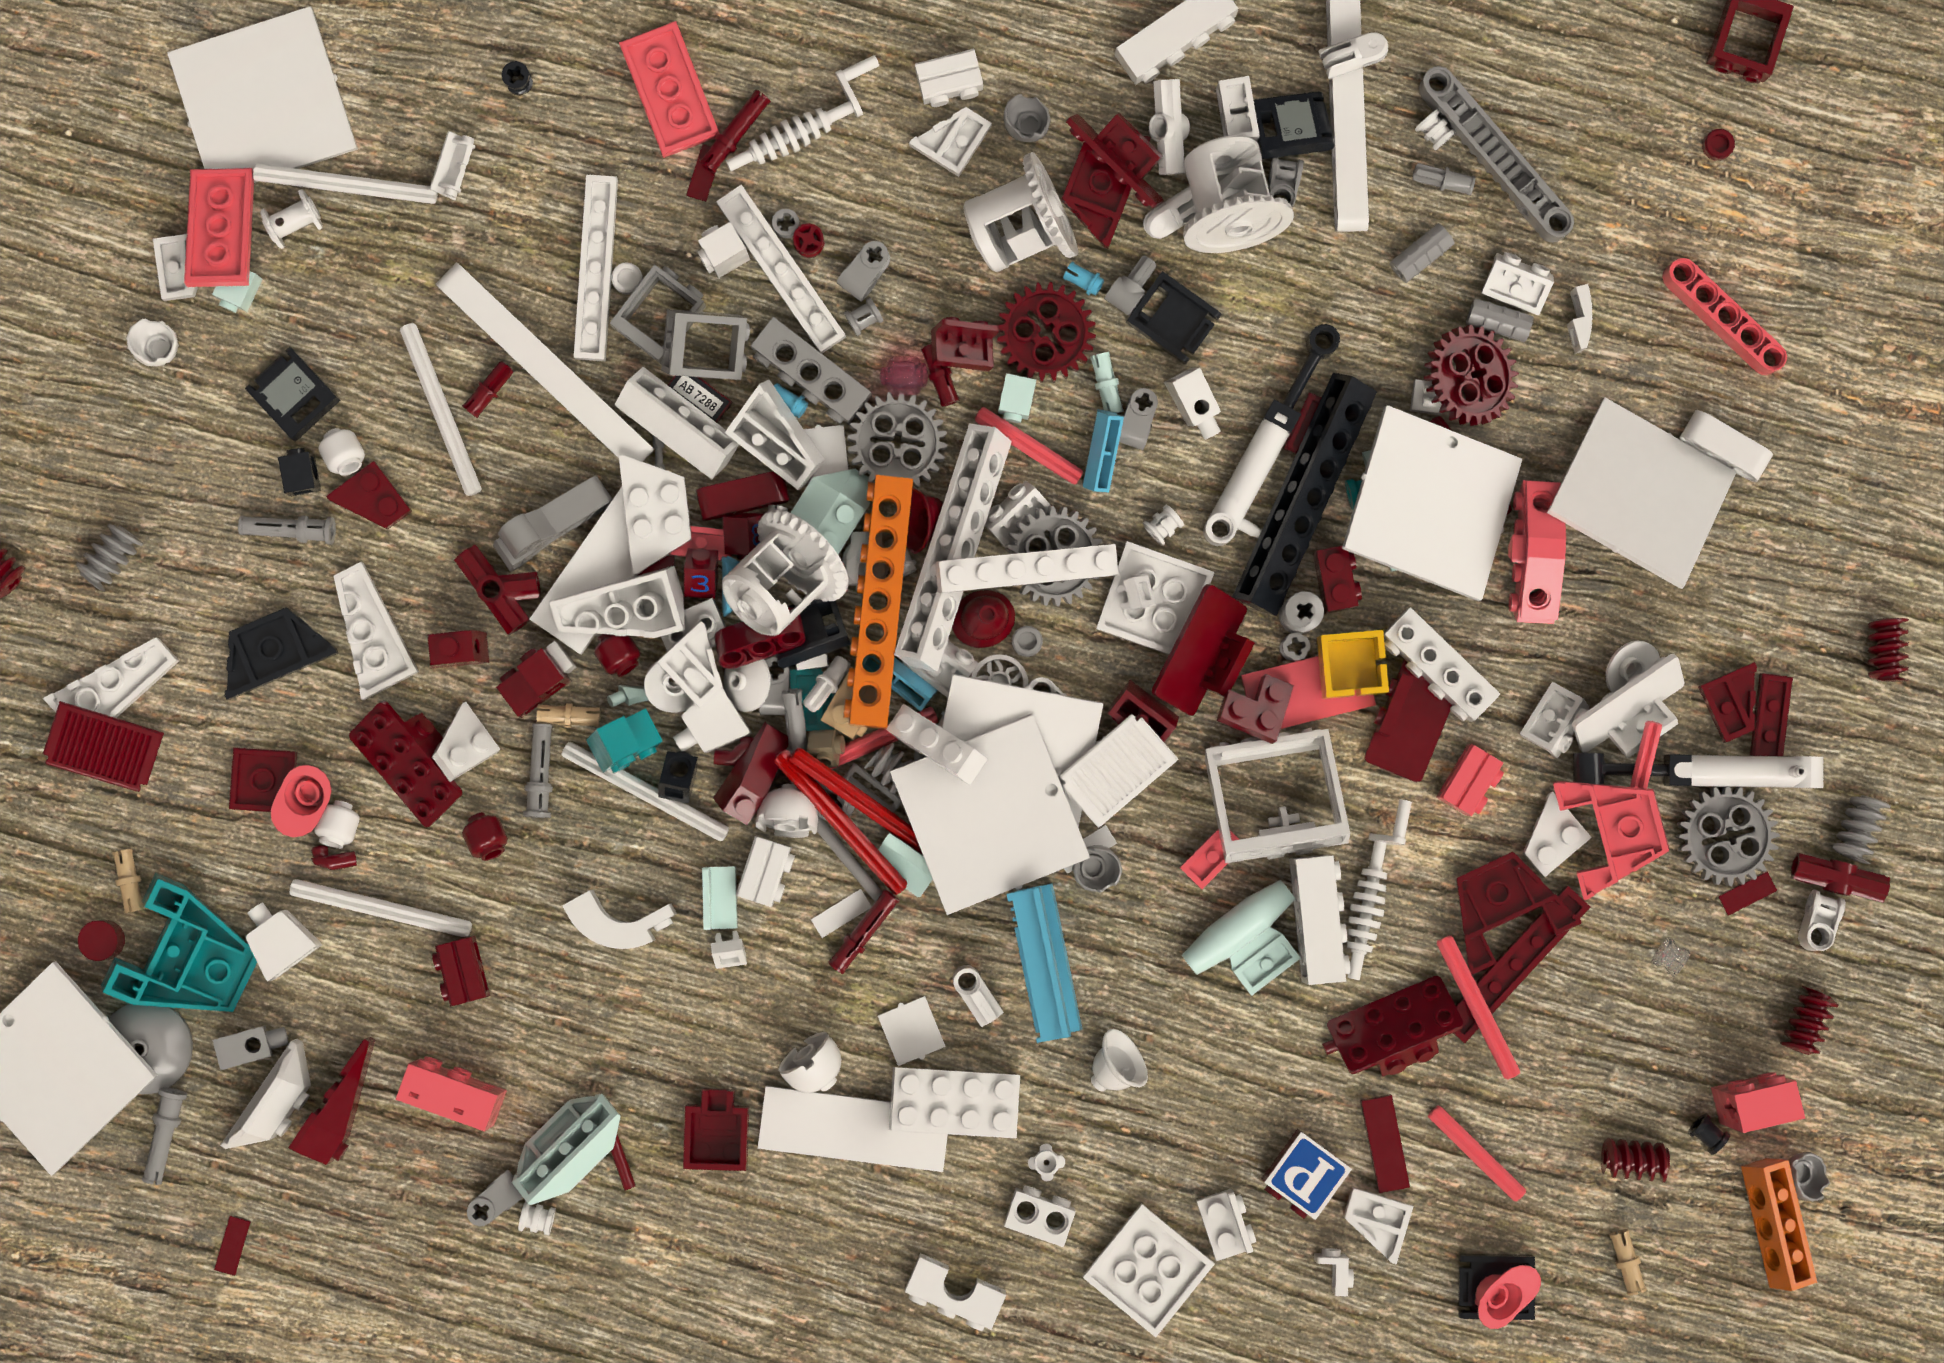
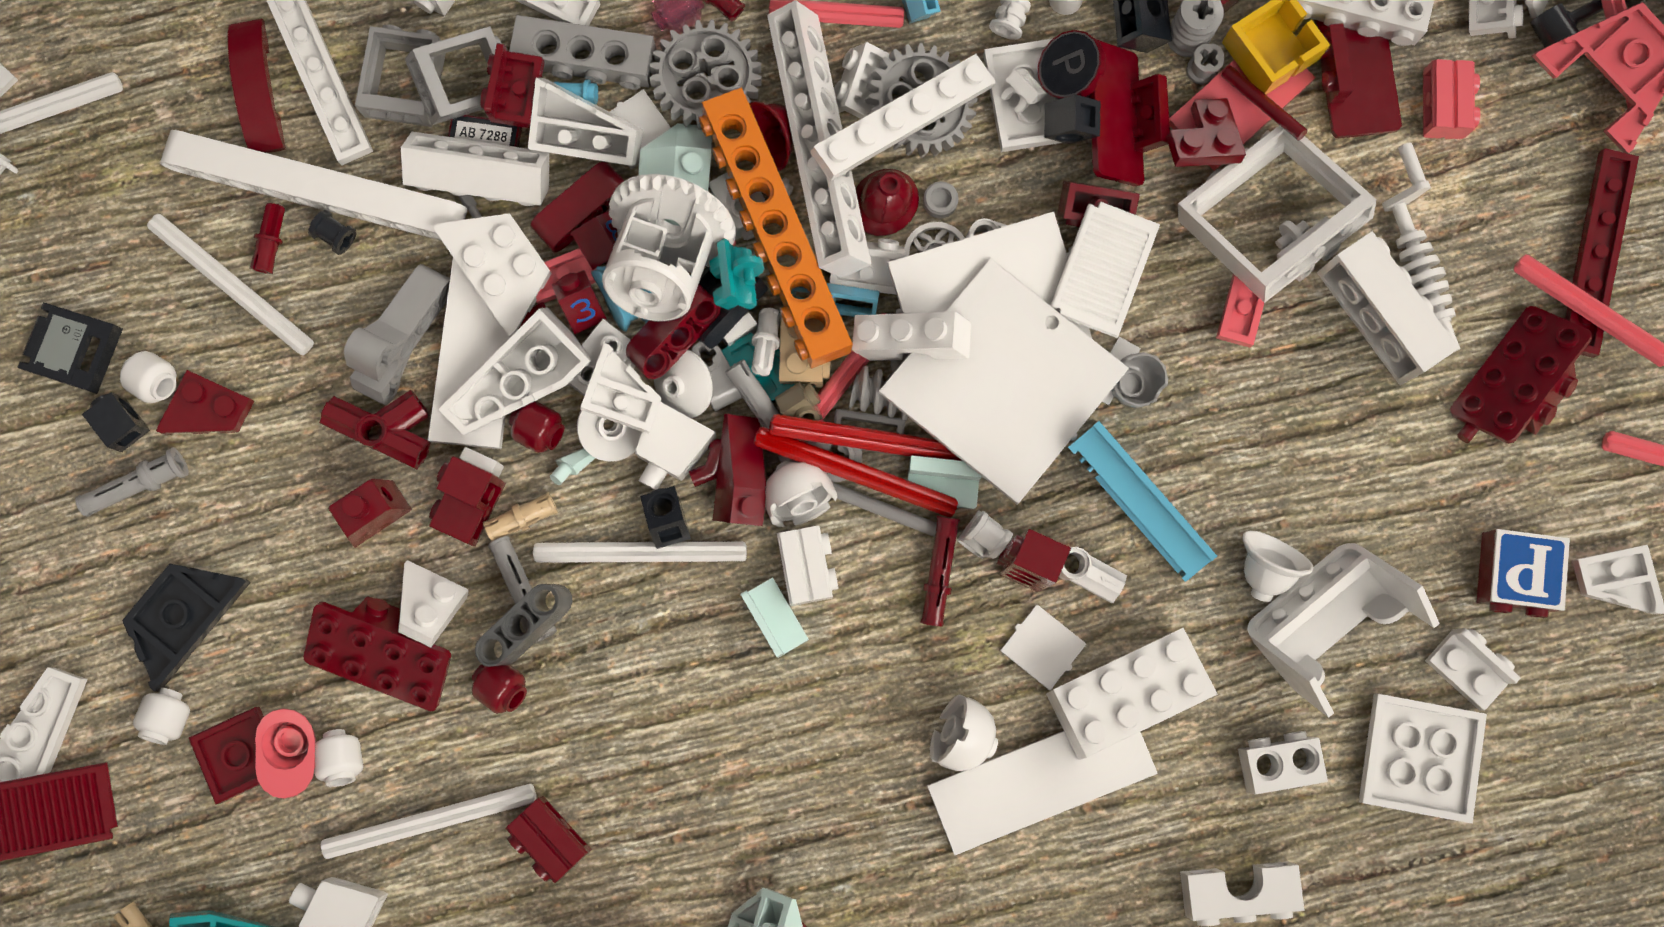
camera: 25 degrees left, 5 degrees down
(222, 721) = (161, 716): none -> white head
(332, 862) = (354, 799): dark red arm -> none
(374, 640) = (281, 549): white wing -> none
(452, 165) = (118, 41): white hinge -> none
(514, 803) = (508, 630): none -> dark grey beam
(539, 257) = (253, 86): none -> dark red slope
(540, 411) = (332, 232): none -> black bush
(600, 927) = (662, 714): white arch -> none
(623, 740) = (589, 508): teal brick -> none
(626, 278) = (349, 61): white tile -> none
(716, 1132) = (904, 862): dark red piece -> none
(729, 952) = (813, 668): white tile -> none
(738, 378) = (511, 86): none -> dark red bracket
(830, 624) = (737, 273): none -> teal hips
(841, 913) = (905, 567): white sticker -> none
(912, 924) = (985, 536): none -> white piece
(930, 964) = (1033, 560): none -> dark red brick
(1046, 1171) = (1263, 698): white plate -> none
(1138, 1120) = (1326, 607): none -> white windscreen
(1157, 640) = (1072, 119): none -> black brick
(1182, 596) = (1071, 64): none -> black tile
(1246, 938) = (1326, 370): light aqua plate -> none
(1318, 706) = (1263, 102): none -> dark red bar
(1341, 1274) = (1614, 650): white bracket -> none
(1385, 1143) = (1578, 499): dark red tile -> none
(1500, 894) = (1544, 193): dark red wing -> none
(1554, 837) = (1559, 112): white wing -> none

